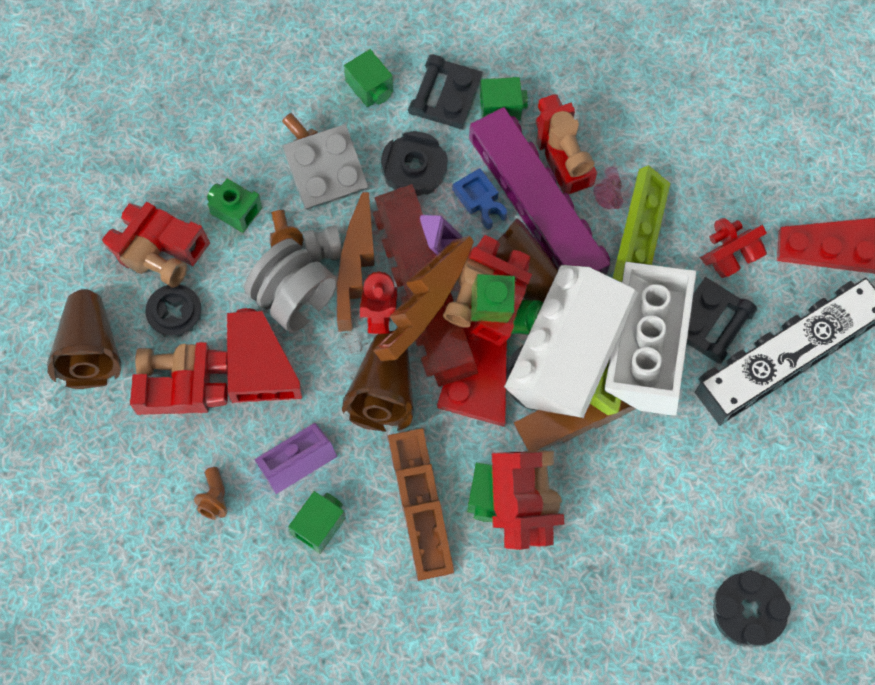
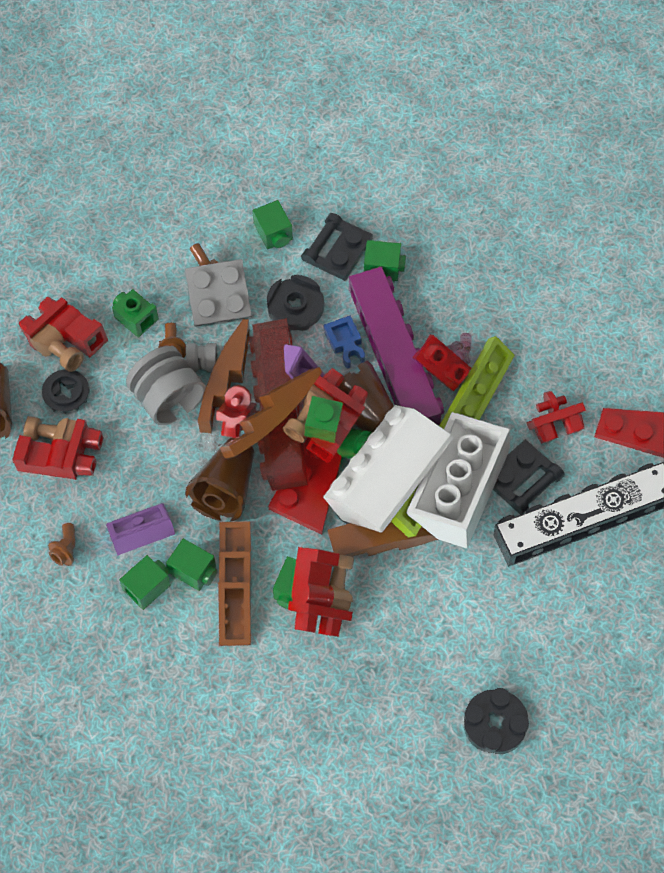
camera: 15 degrees right, 5 degrees down
(257, 361) = (123, 443): red slope -> none
(367, 491) = (192, 565): none -> green brick
(557, 135) = (423, 299): hips -> none
(598, 206) = (442, 363): none -> red hips

